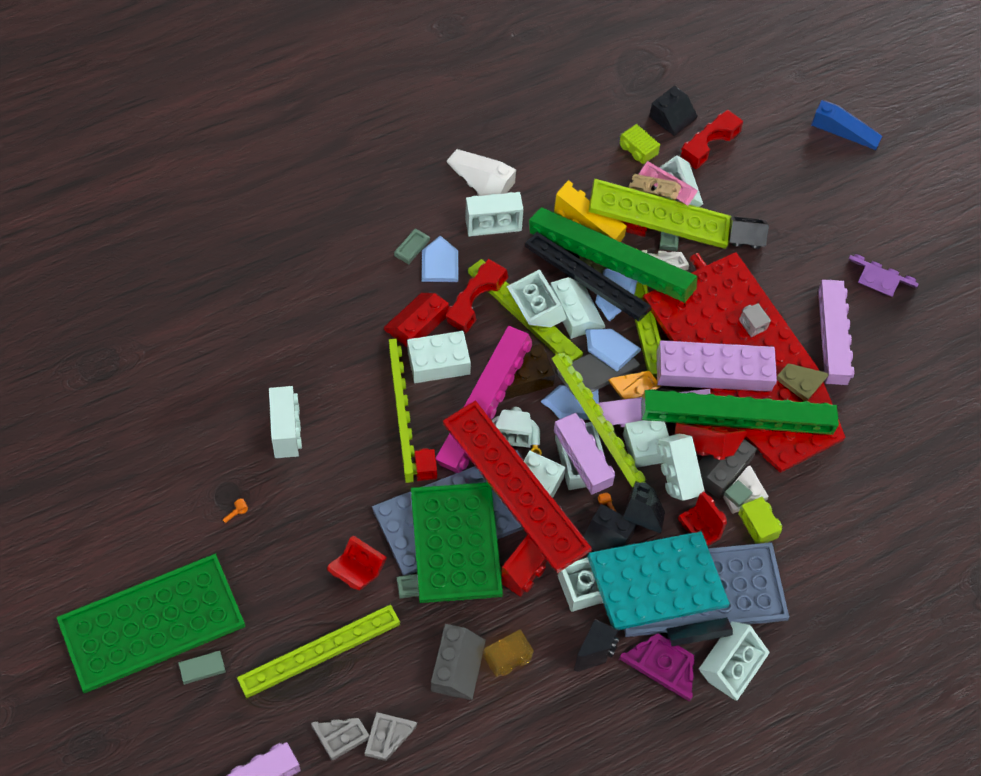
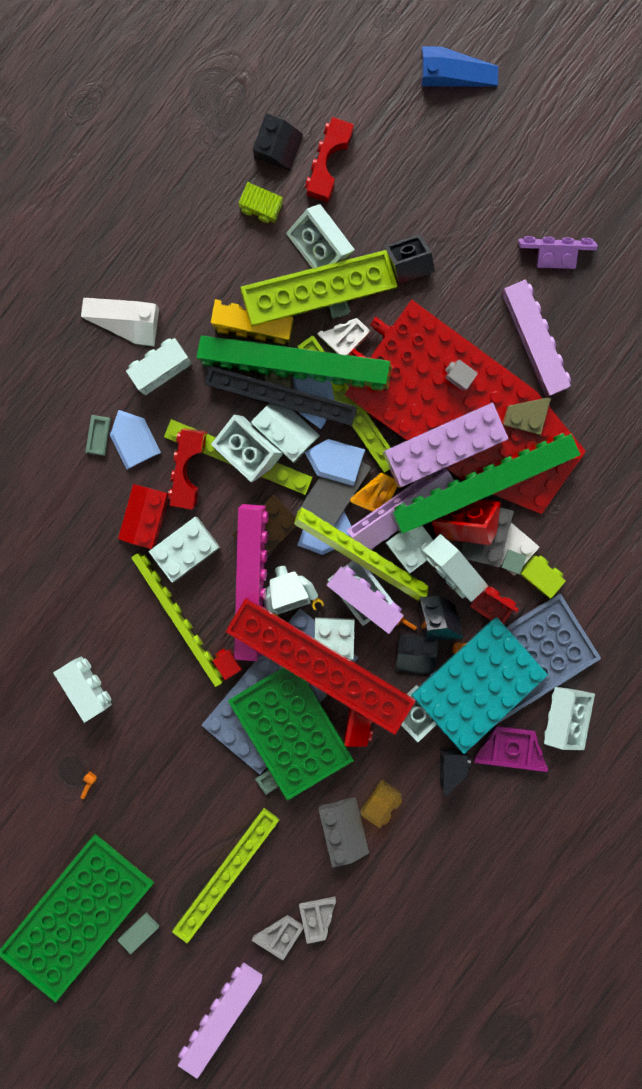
camera: 20 degrees left, 30 degrees up
(358, 564) = (217, 791): red bracket -> none
(665, 187) = (311, 255): tan piece -> none
(686, 192) = (310, 244): bright pink tile -> none
(699, 631) = (532, 712): black tile -> none

